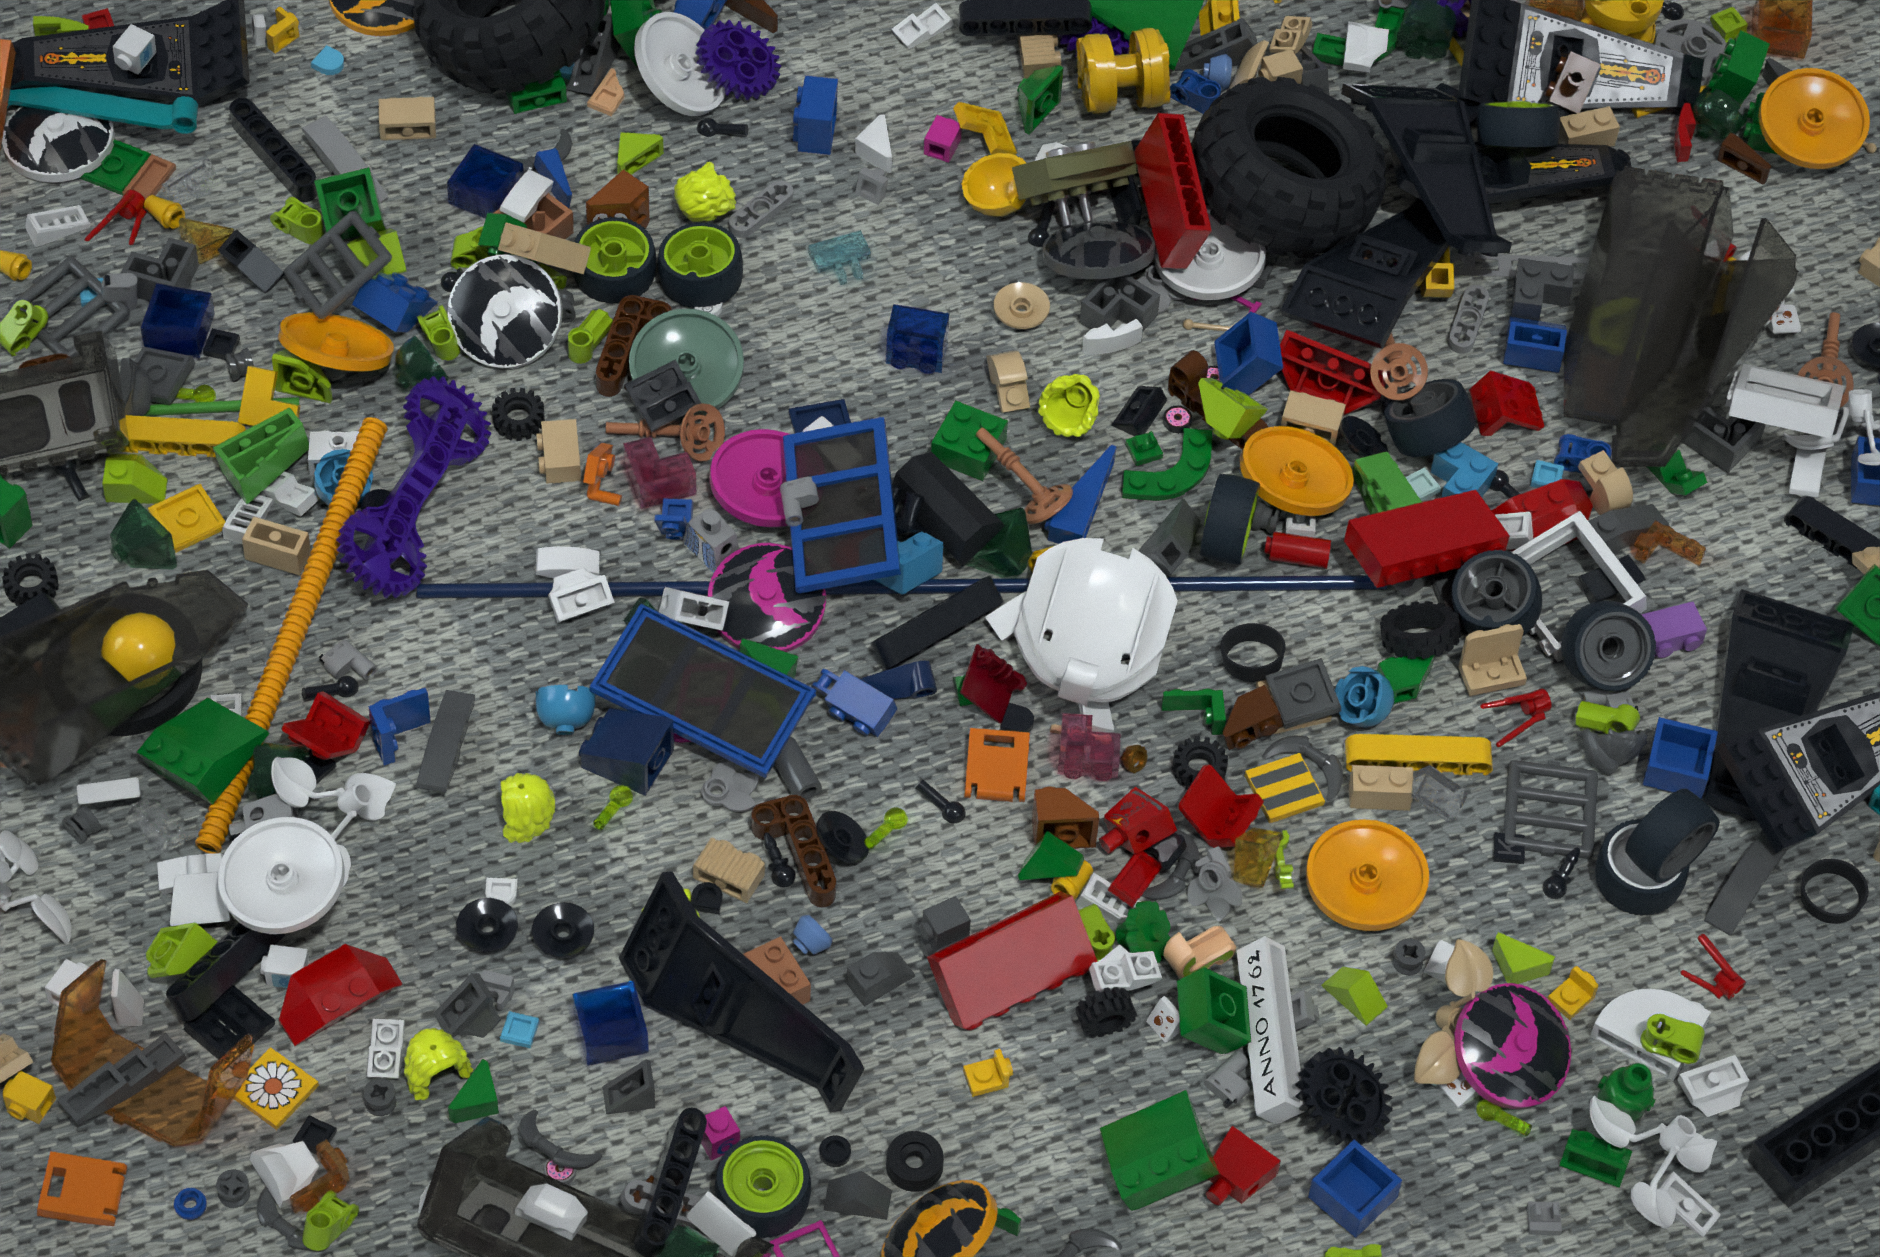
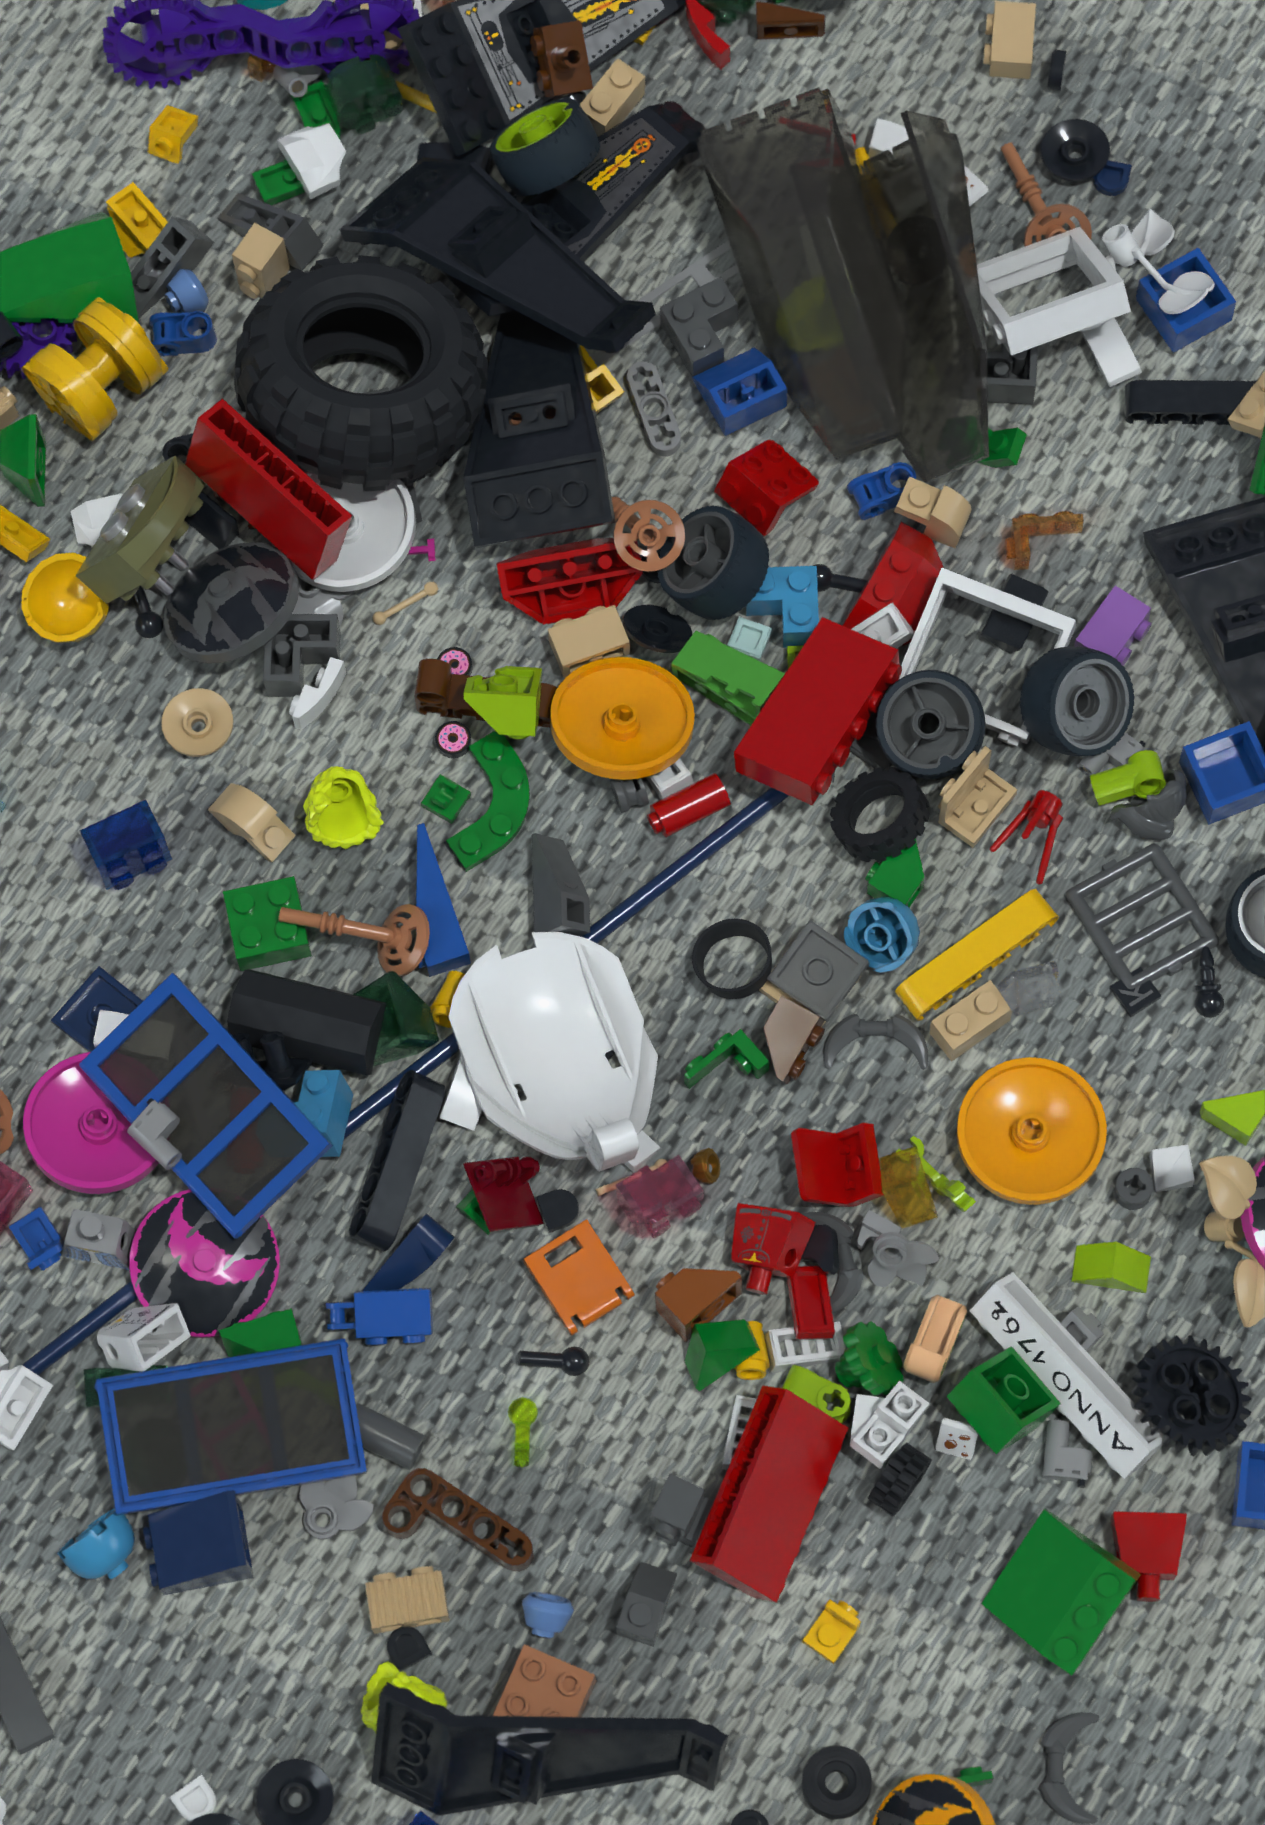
camera: 30 degrees left, 15 degrees up
(526, 806) = (160, 1695): neon yellow hair -> none
(619, 797) = (230, 1599): clear neon green bar -> none
(782, 874) = (460, 1561): black bar -> none
(842, 837) = (491, 1478): black dish -> none
(1140, 410) = (407, 756): black slope -> none
(1198, 749) = (768, 1105): black tyre -> none
(1229, 519) = (605, 828): black wheel -> none
(1248, 353) = (476, 617): blue piece -> none
(1250, 64) = (220, 279): tan slope -> none
(1285, 787) = (874, 1087): yellow tile -> none
(1291, 35) = (227, 195): tan slope -> none
(1546, 473) = (863, 537): medium azure tile -> none
(1623, 526) = (985, 539): dark grey slope -> none

